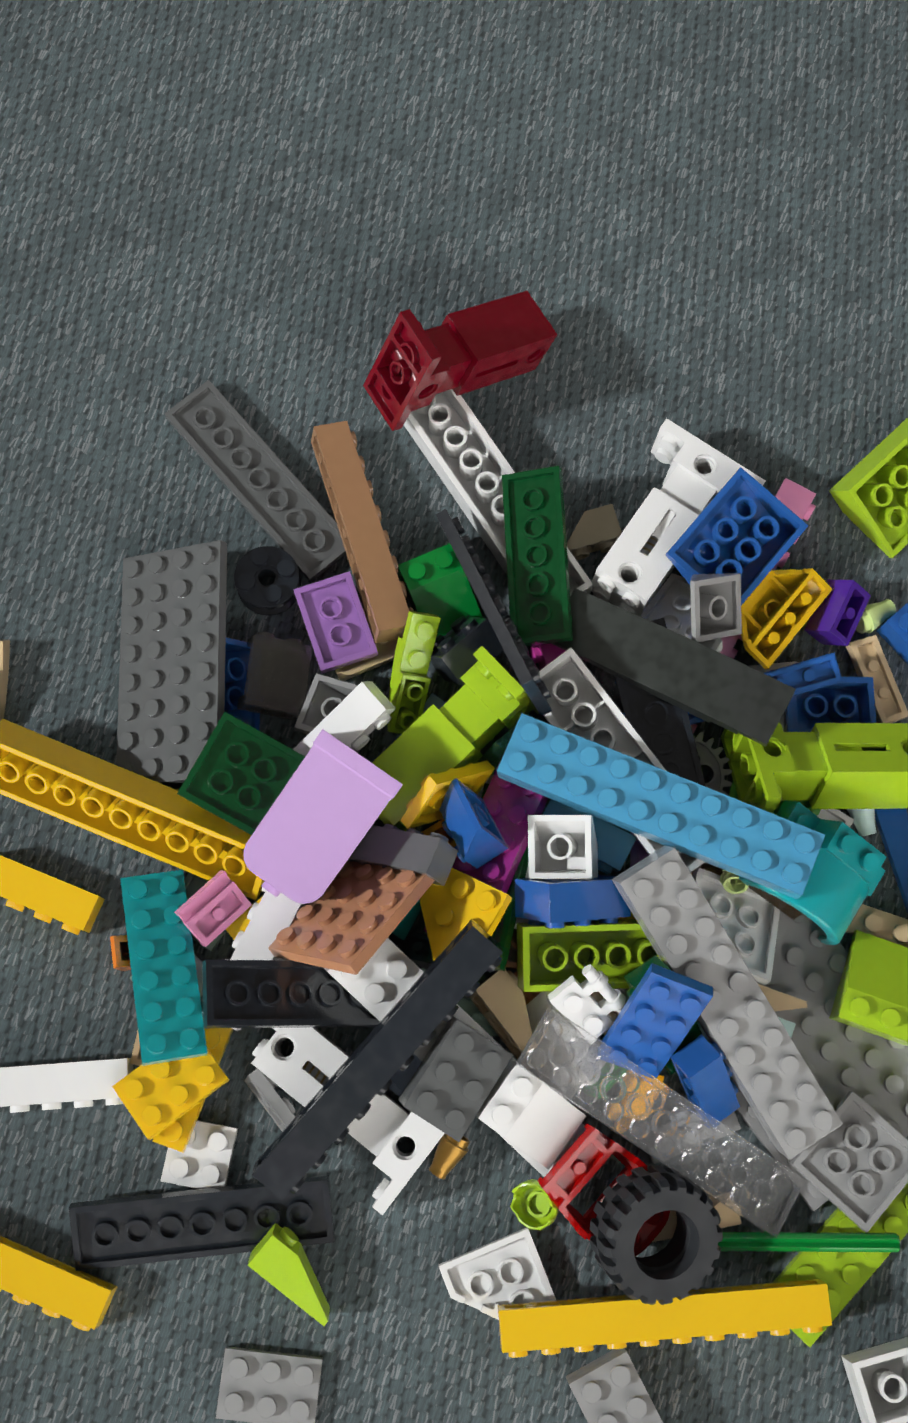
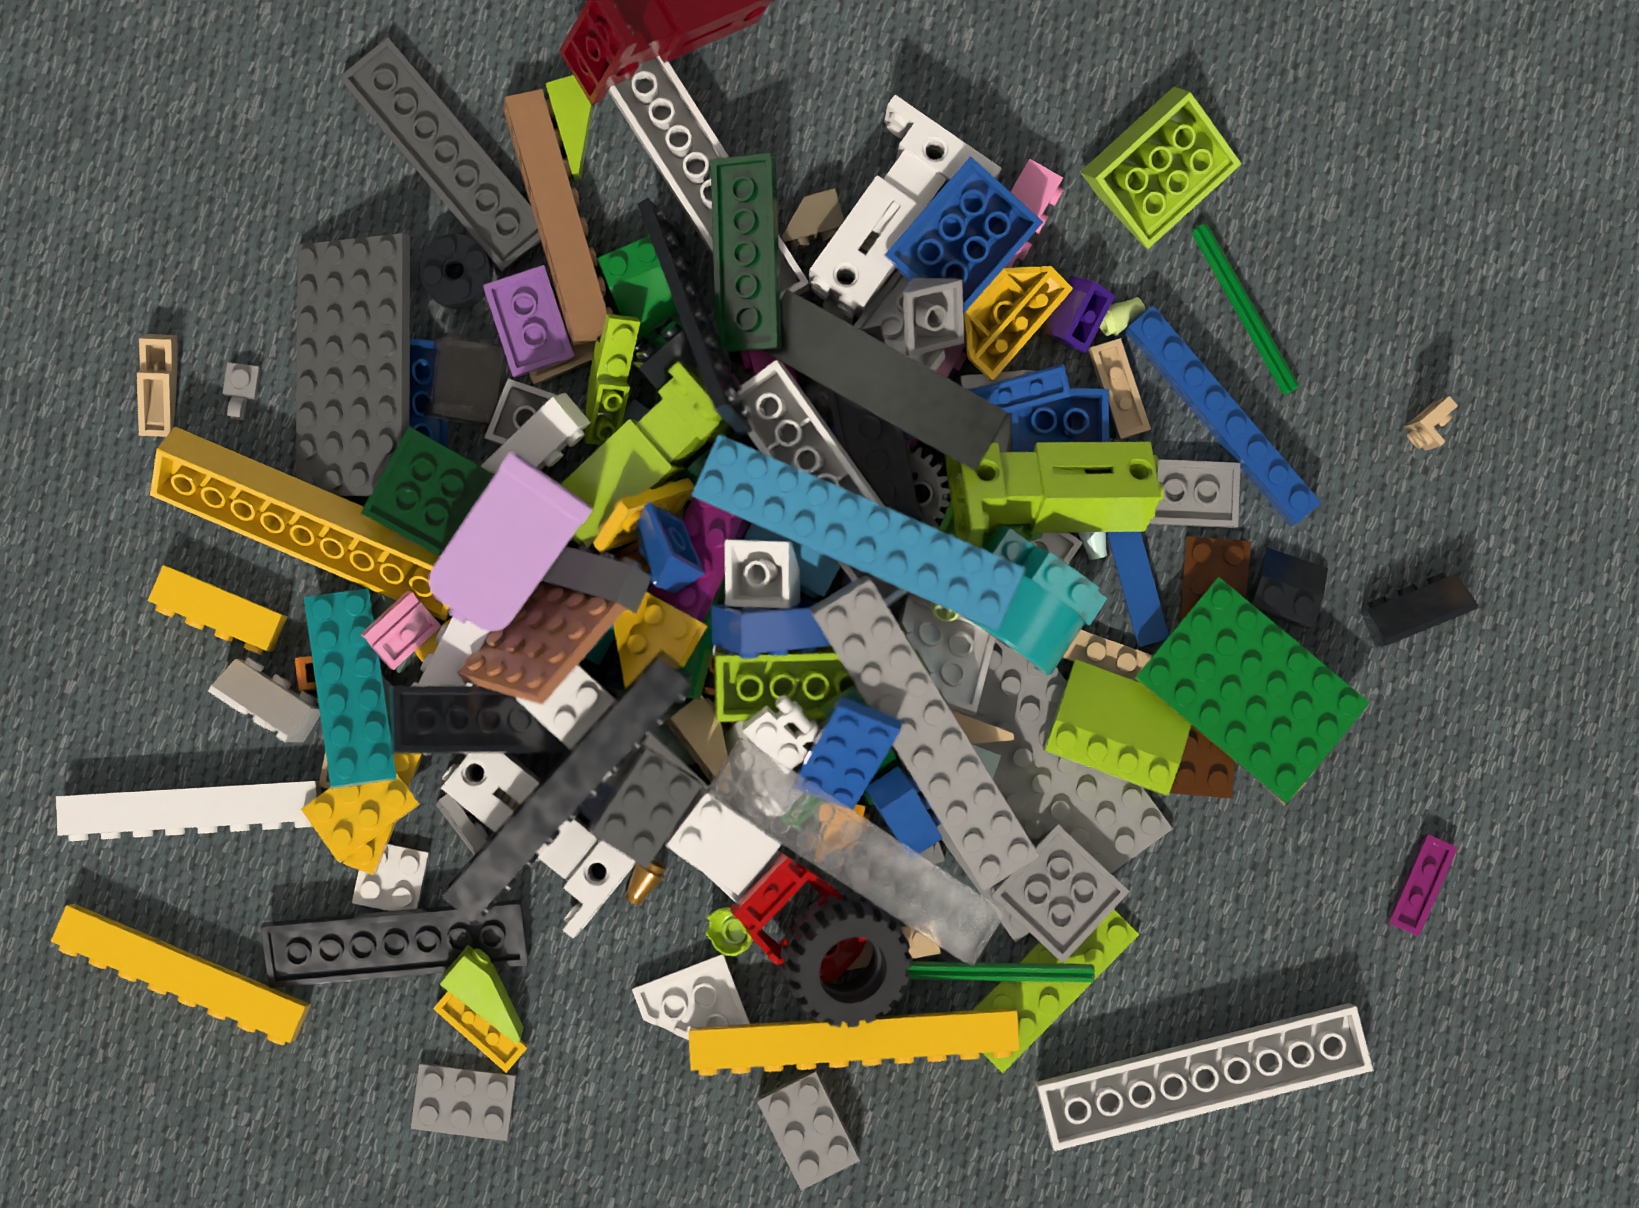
camera: 10 degrees right, 10 degrees up
(67, 683) = (240, 384): none -> light grey plate
(82, 978) = (269, 698): none -> white wedge
(287, 1314) = (480, 1032): none -> yellow plate
(374, 445) = (573, 118): none -> lime slope

